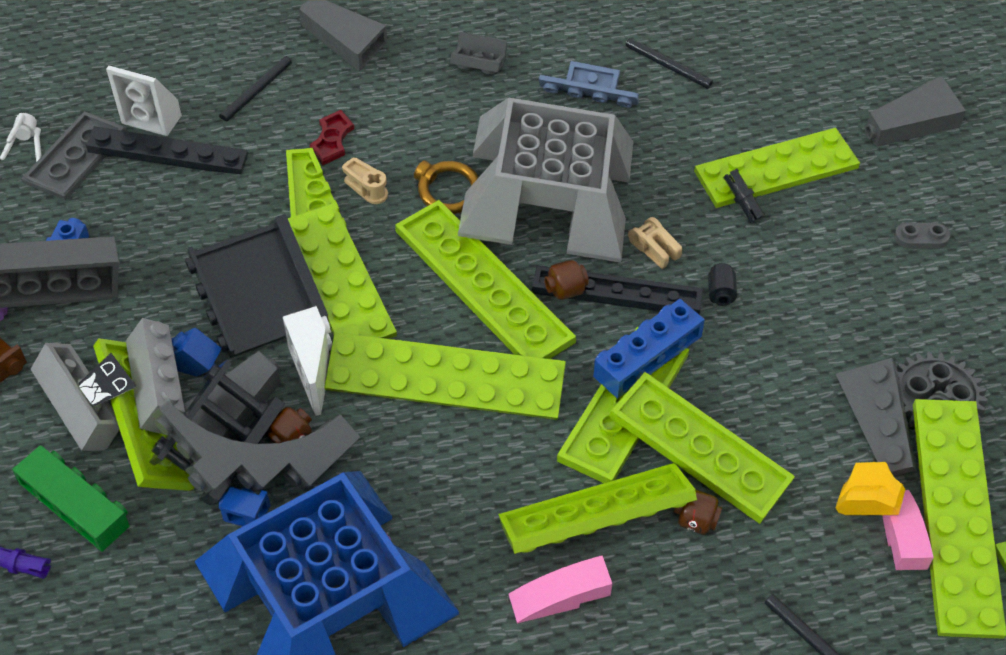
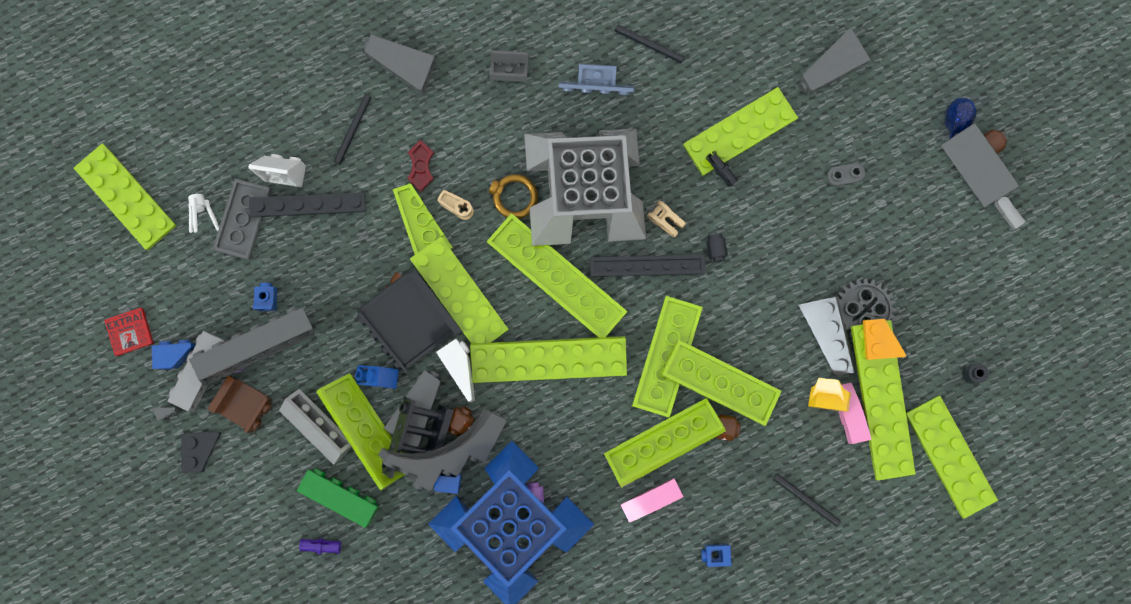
camera: 10 degrees left, 30 degrees up
(106, 381) = (335, 421): black sticker -> none
(153, 371) = (363, 406): light grey brick -> none
(566, 279) = (614, 271): reddish brown head -> none
(648, 347) = (678, 317): blue brick -> none
(957, 420) = (880, 340): none -> light orange wing

